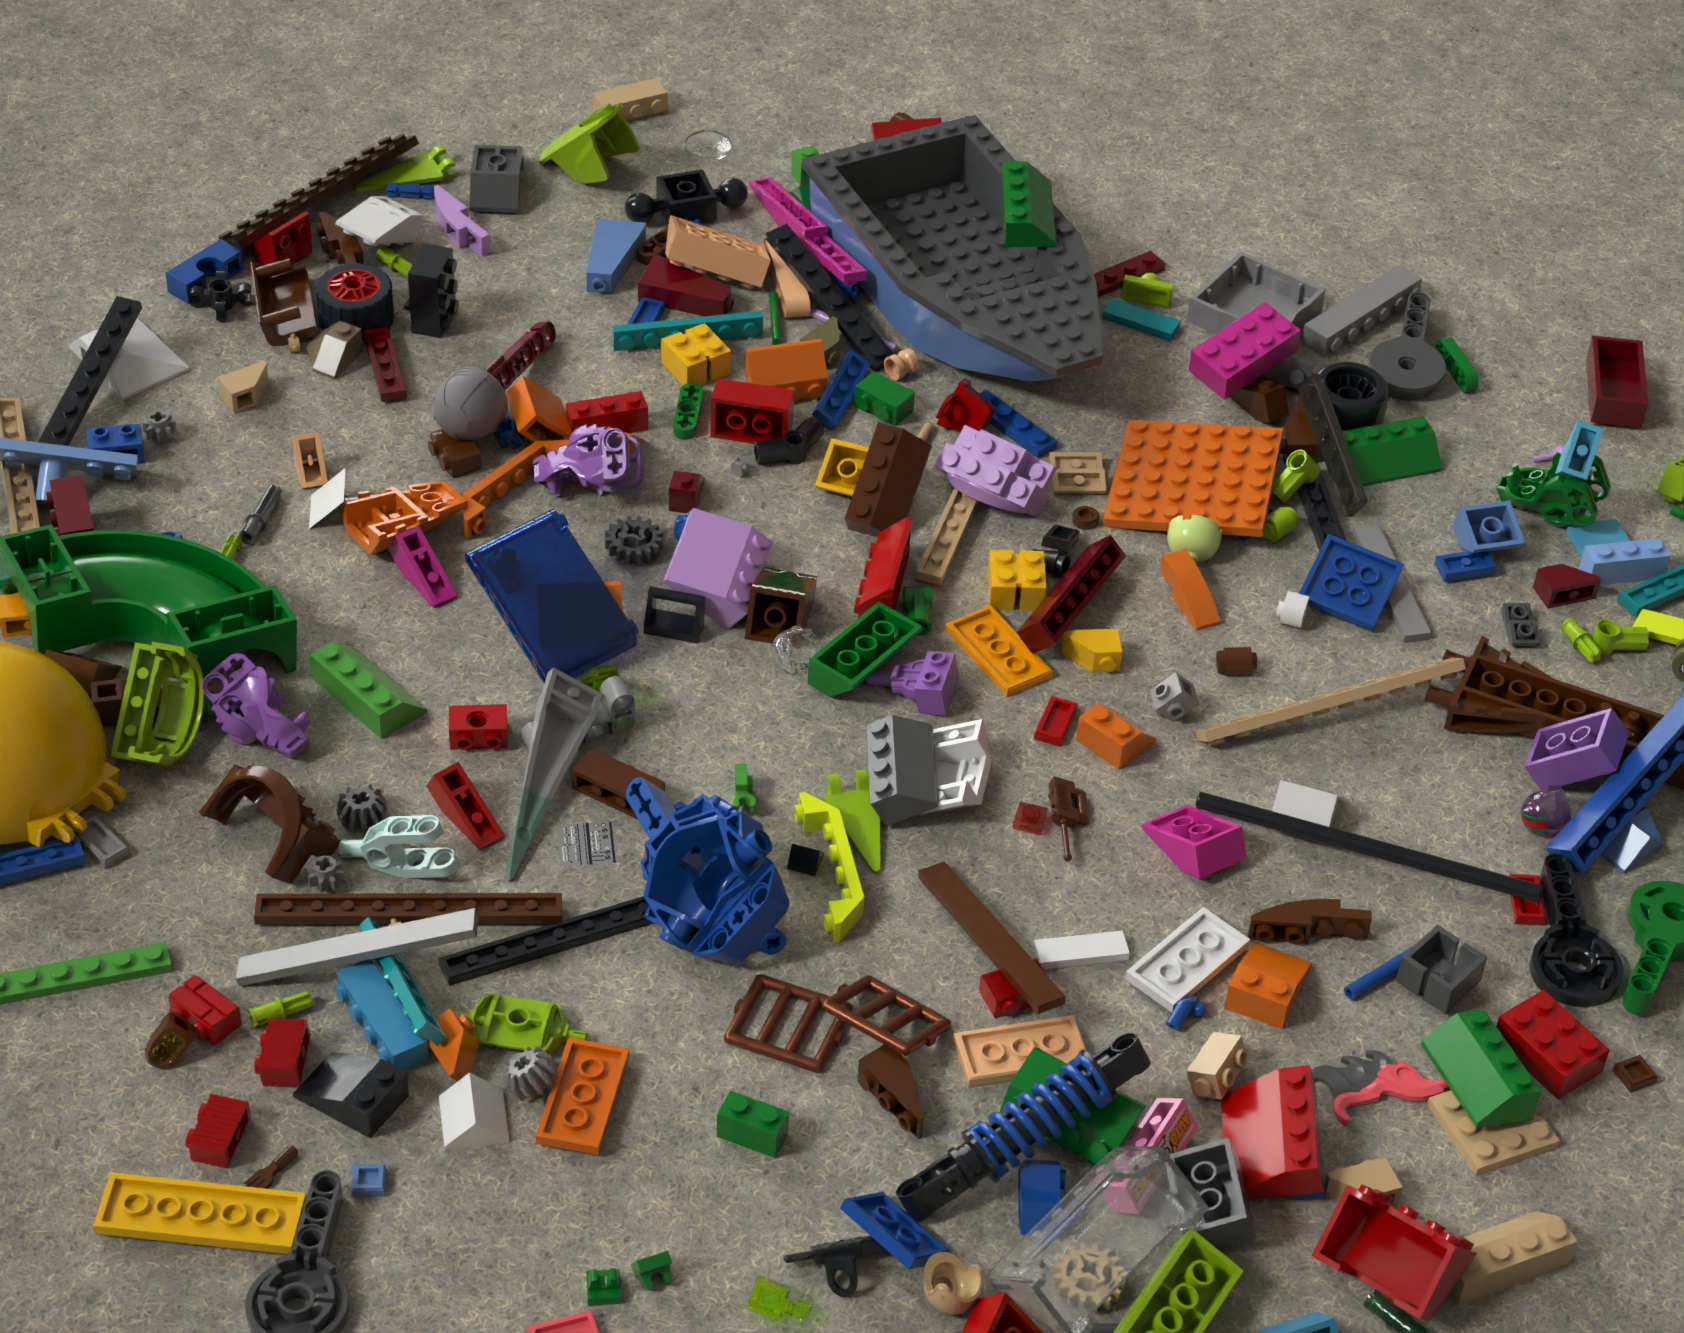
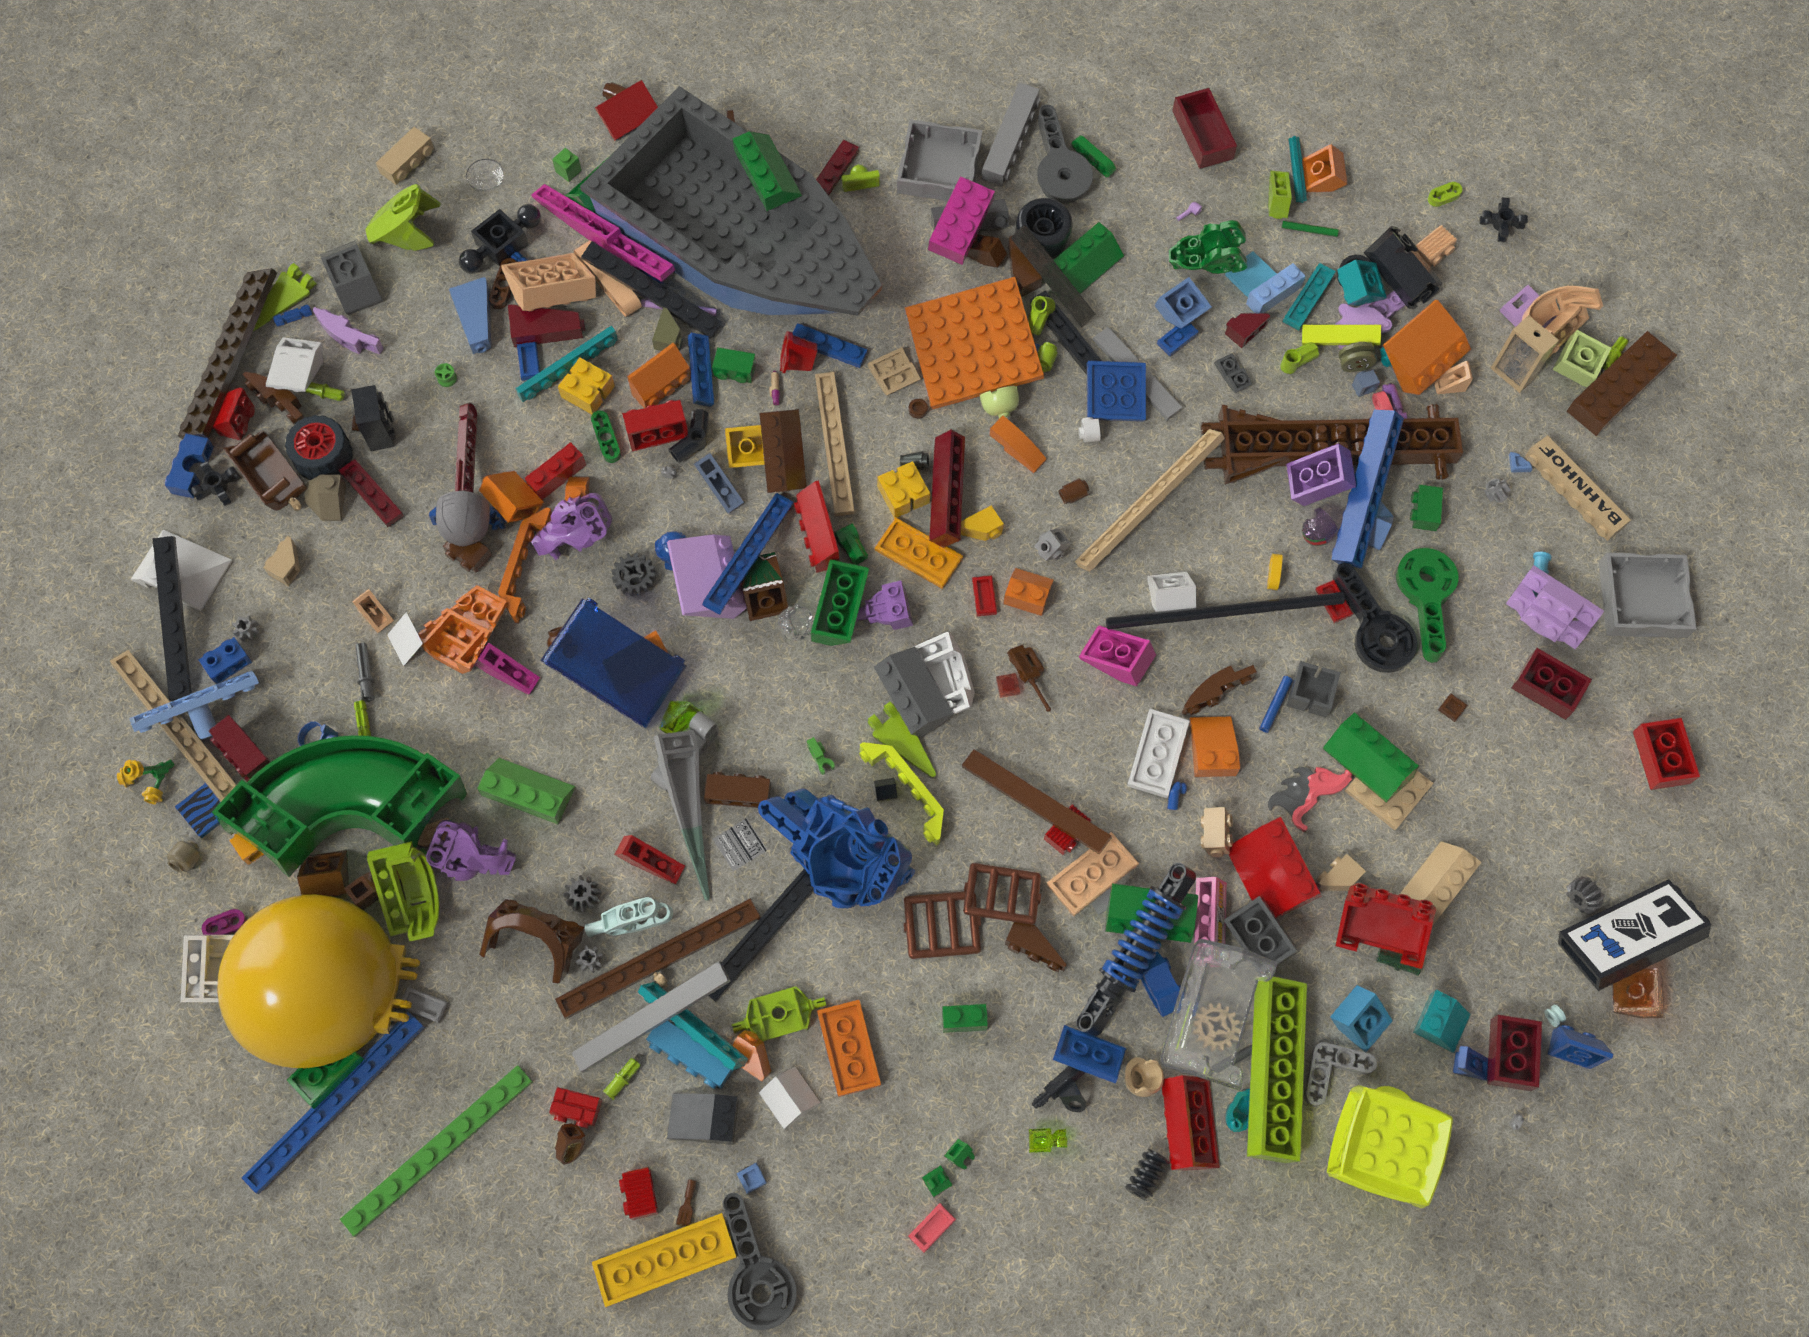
camera: 25 degrees left, 25 degrees up
(283, 1052) = (645, 1113): red brick -> none
(478, 726) = (624, 777): red brick -> none
(530, 1073) = (810, 1052): light grey gear -> none
(542, 294) = (442, 371): none -> bright green wheel
(673, 624) = (696, 630): black tile -> none
(685, 491) = (644, 512): dark red slope -> none
(775, 318) = (619, 321): green bar -> none
(780, 558) = (747, 554): none -> blue plate
(792, 491) = (718, 483): none -> sand blue slope
(898, 365) = (729, 327): light nougat wheel -> none
(996, 472) = (845, 404): lavender piece -> none
(1060, 538) = (913, 438): black tile -> none
(1081, 949) = (1090, 776): white tile -> none
(1141, 319) = (867, 207): teal tile -> none
(1460, 835) = (1274, 571): none -> yellow beam
(1552, 1044) = (1399, 713): red brick -> none
(1579, 451) = (1227, 229): medium azure slope -> none
(1581, 640) = (1277, 369): lime axle -> none

